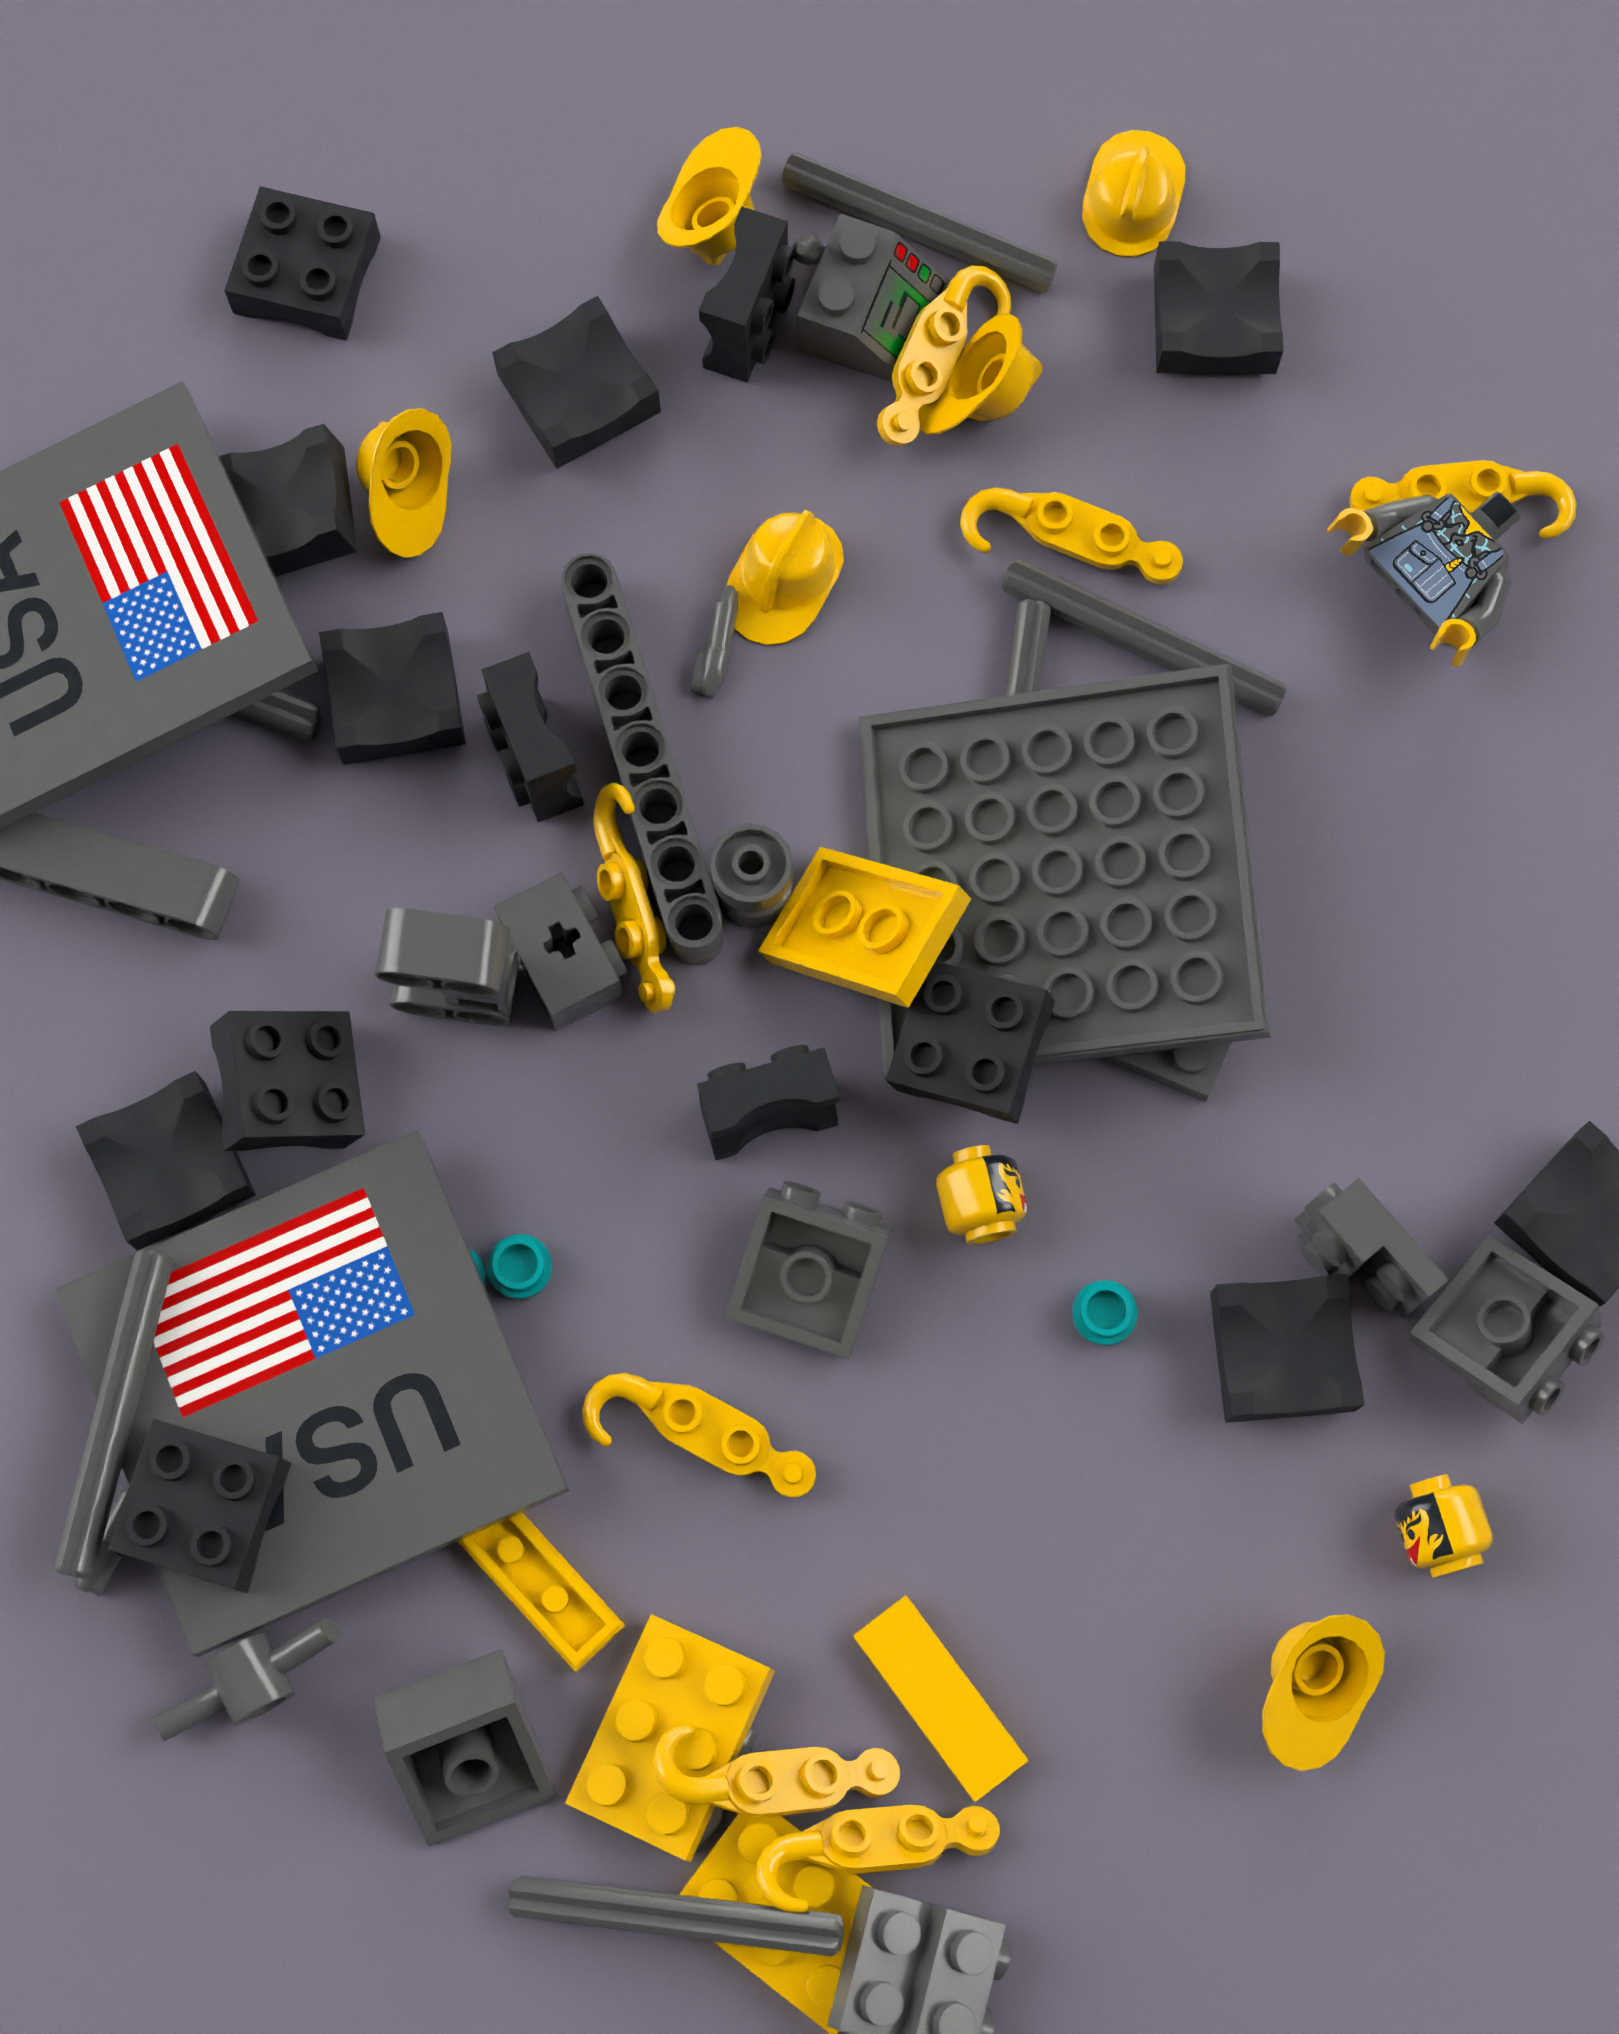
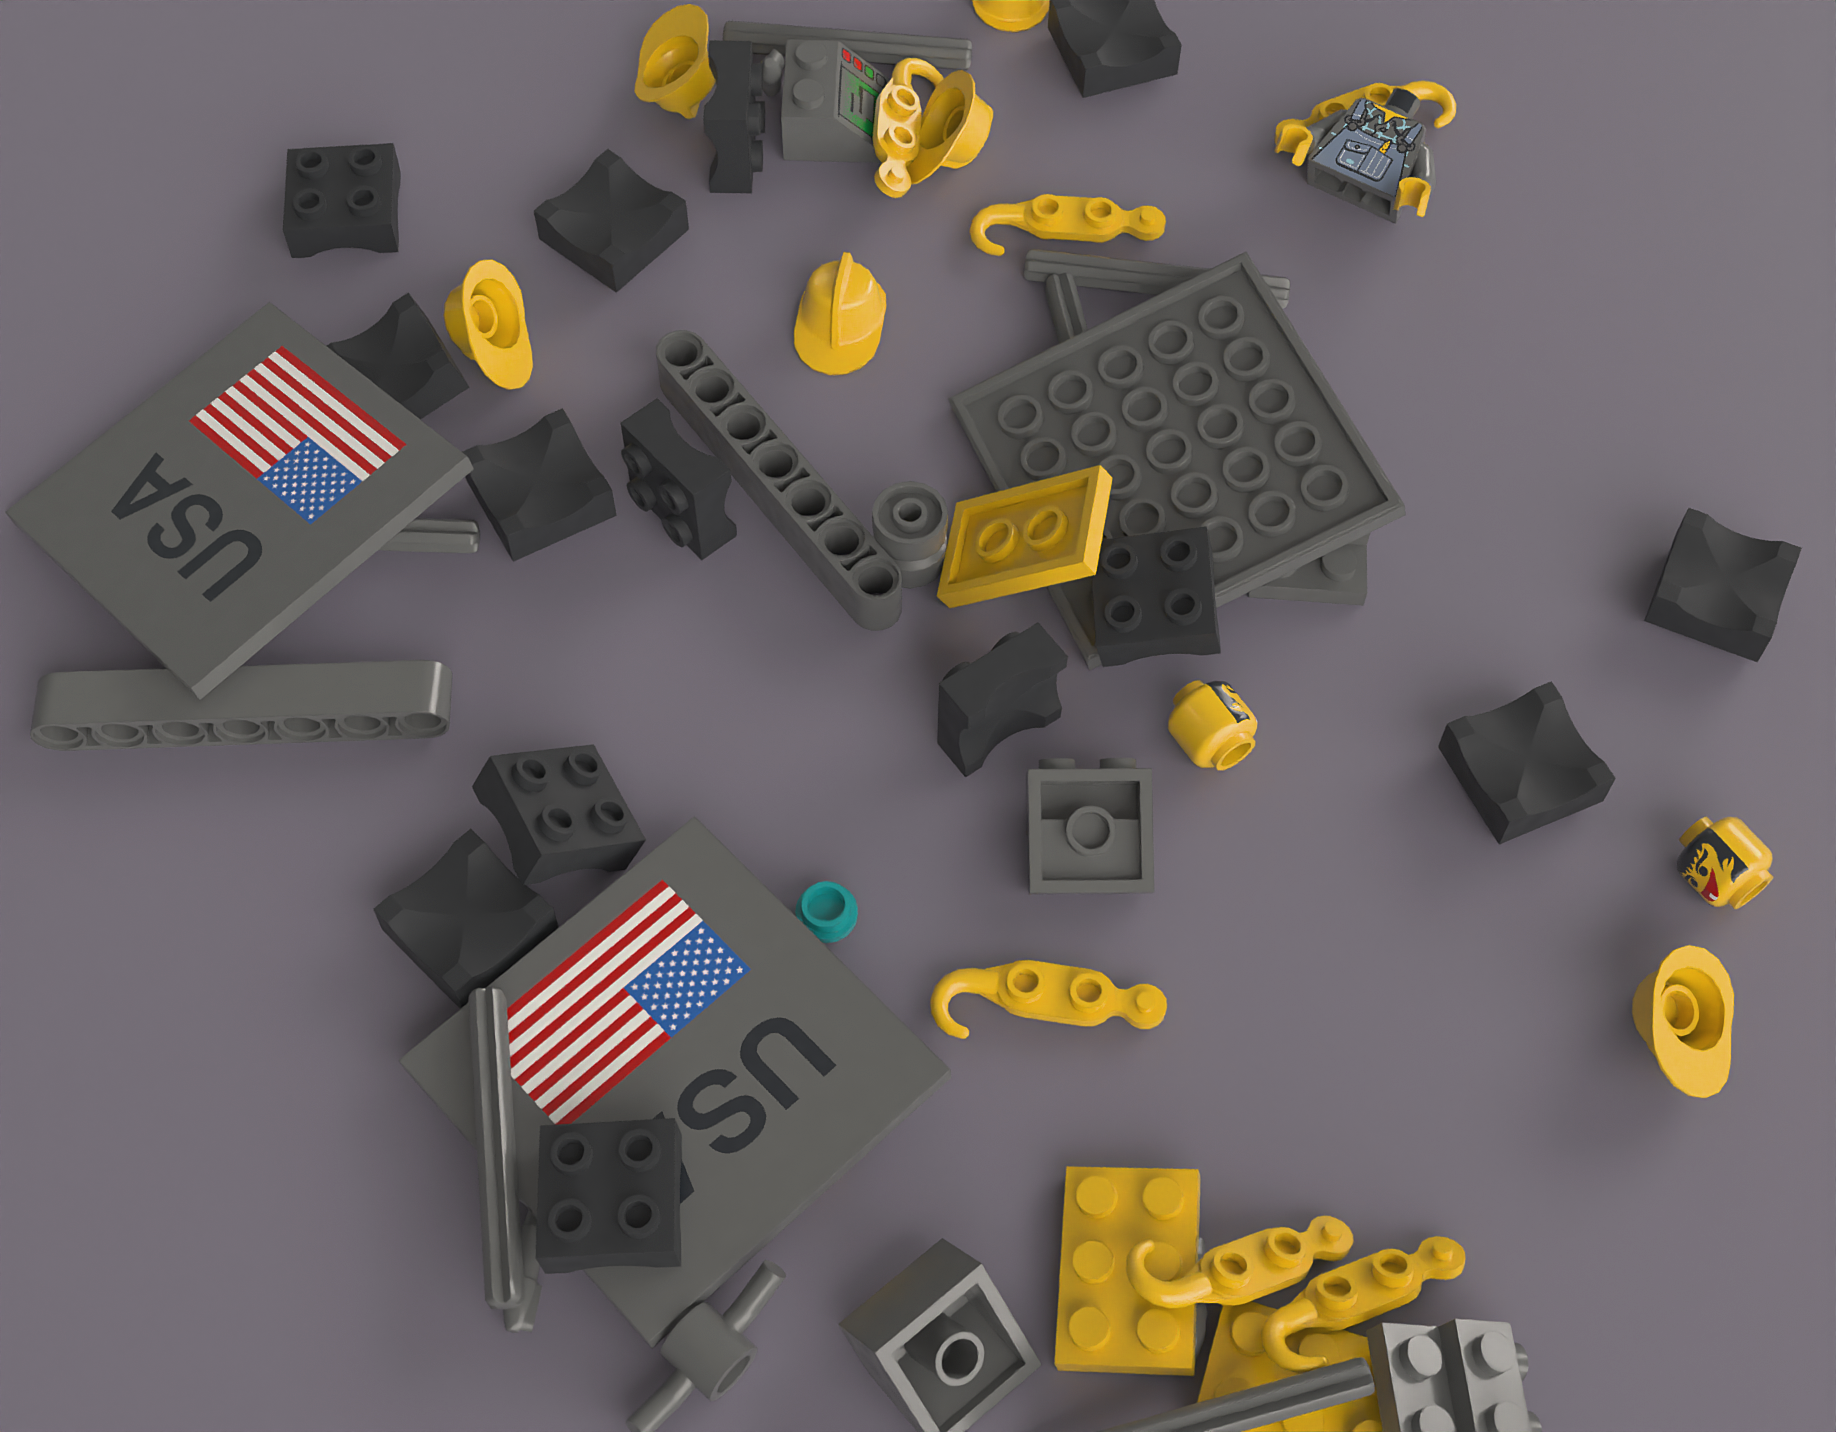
camera: 20 degrees left, 15 degrees down
(448, 966) = (677, 666): dark grey beam -> none
(545, 1588) = (955, 1180): yellow tile -> none
(568, 986) = (764, 644): dark grey brick -> none
(625, 884) = (810, 589): yellow piece -> none
(714, 659) = (807, 390): dark grey piece -> none
(940, 1698) = (1358, 1154): yellow tile -> none
(1104, 1313) = (1357, 788): teal plate -> none
(1357, 1232) = (1561, 645): dark grey plate -> none
(1510, 1330) = (1702, 690): dark grey plate -> none

